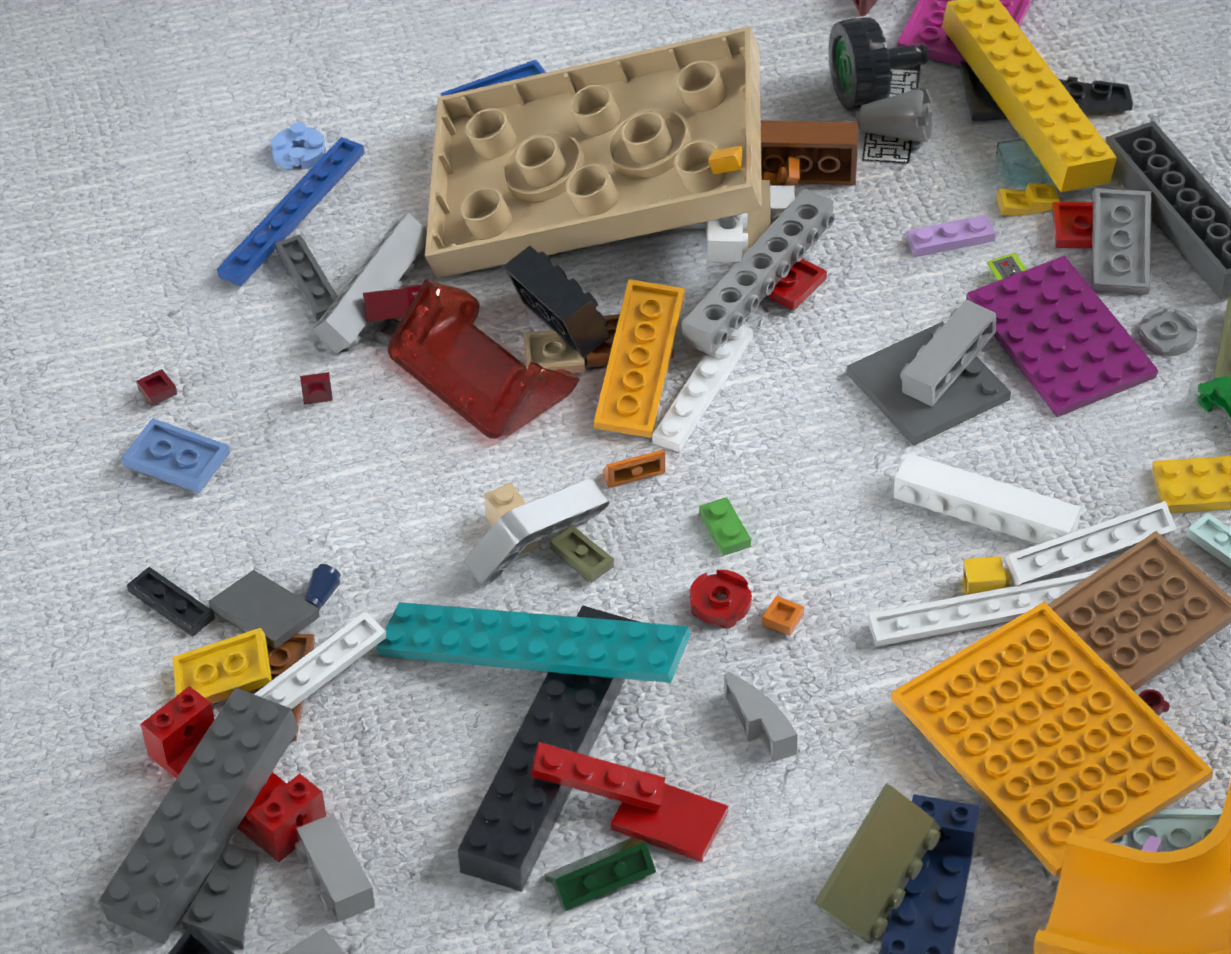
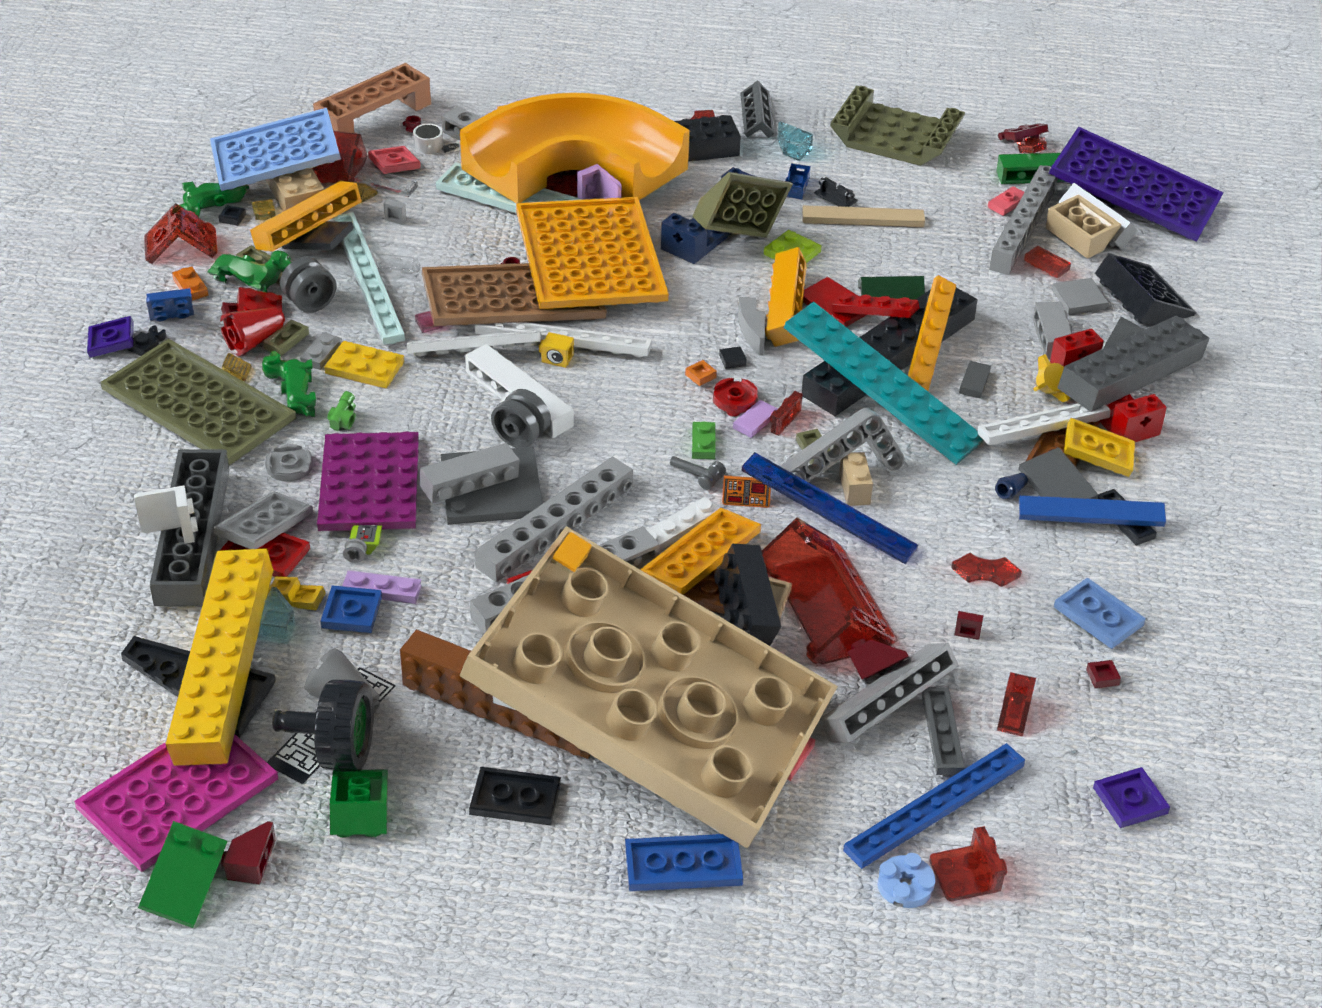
camera: 160 degrees left, 5 degrees down
(104, 275) = (1131, 797): none -> dark purple plate
(211, 573) = (1092, 511): none -> blue tile
(240, 328) = (1016, 704): none -> clear red slope
(243, 167) = (970, 869): none -> clear red bracket
(307, 474) = (974, 568): none -> clear red tile
(312, 759) = (1049, 378): none -> yellow piece
(421, 748) = (975, 379): none -> dark grey tile
(499, 749) = (931, 331): none -> light orange plate
(527, 463) = (830, 508): none -> clear blue tile
(641, 597) = (786, 413): none -> clear red plate
(678, 578) = (754, 418): none -> lavender tile
(689, 476) = (708, 477): none -> dark grey piece
(737, 778) = (785, 294): none -> light orange brick
(758, 664) = (732, 357): none -> black tile
(781, 902) = (791, 240): none -> lime plate
(803, 44) = (359, 803): none -> green slope
(824, 359) = (545, 523): none -> light grey brick
(946, 434) = (521, 418): none -> dark grey wheel
(958, 197) = (351, 609): none -> blue plate
(1004, 248) = (349, 553): none -> light grey bush
(1162, 396) = (343, 414): none -> bright green plate
(1186, 159) = (166, 510): none -> white bracket

